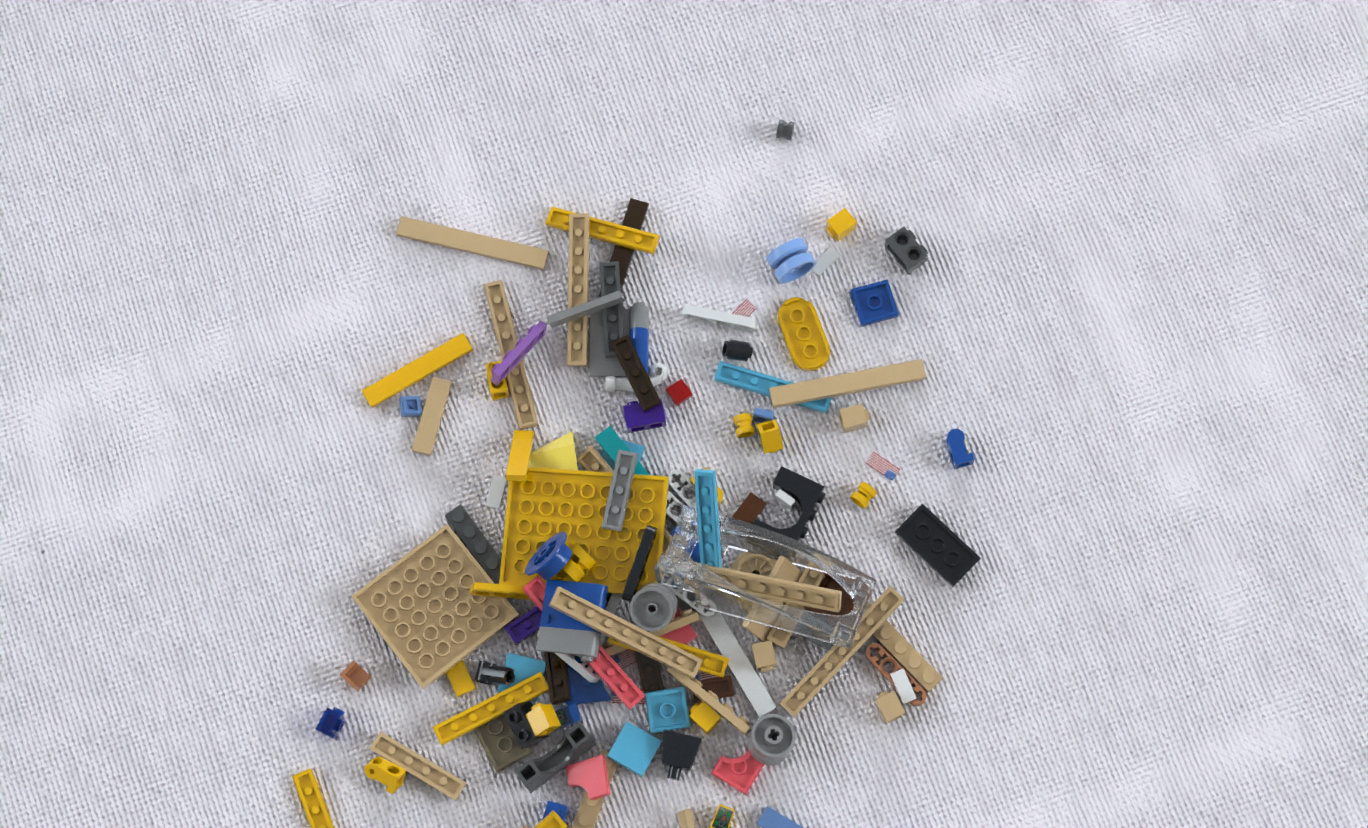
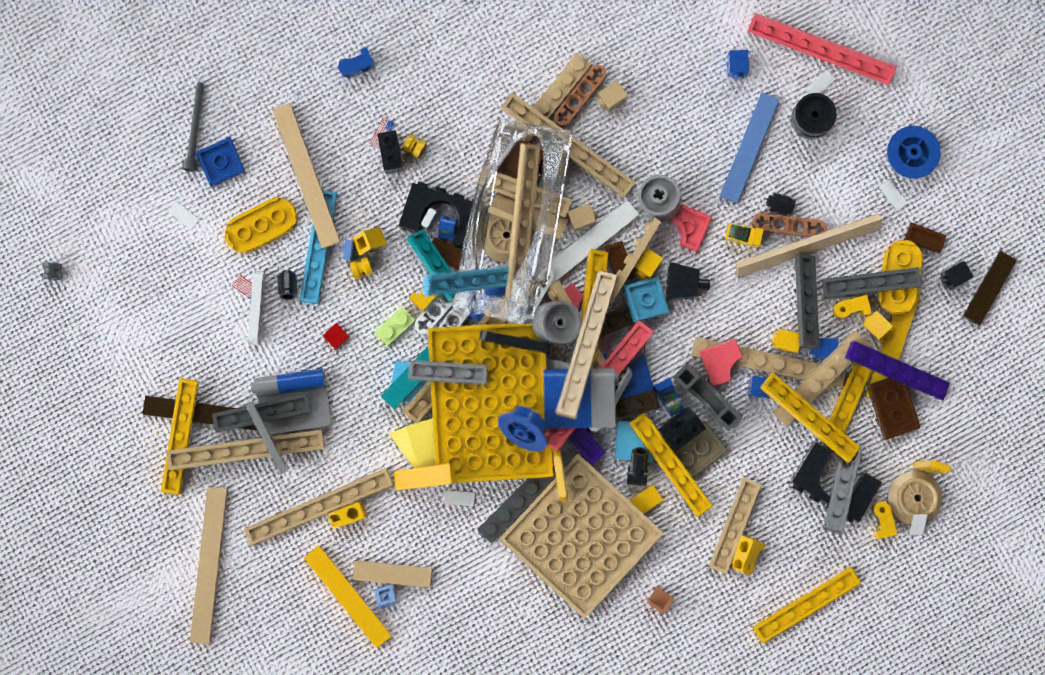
camera: 105 degrees left, 10 degrees up
(331, 722) = (707, 615): clear blue brick -> none
(522, 347) = (325, 501): medium lavender plate -> none
(543, 719) = (676, 412): yellow brick -> none
(578, 563) = (533, 400): yellow wheel -> none
(623, 384) = (334, 380): white plant -> none
(634, 749) = (687, 325): medium azure tile -> none
(636, 373) = (325, 378): dark brown tile -> none
(639, 420) = (364, 365): dark purple brick -> none
(680, 451) = (395, 326): none -> yellowish green plate
(744, 494) = (429, 255): none -> teal tile
(773, 515) = (447, 228): none -> blue leg
(791, 260) = (190, 244): light blue wheel -> none
(840, 225) = (145, 203): yellow brick -> none
(854, 417) = (339, 165): tan brick -> none
(860, 469) = (390, 152): none -> black brick
(877, 273) = (190, 162): none -> dark grey piece
(902, 252) = (167, 141): dark grey brick -> none
(903, 686) = (590, 86): white sticker -> none
(937, 545) = (452, 72): black plate -> none

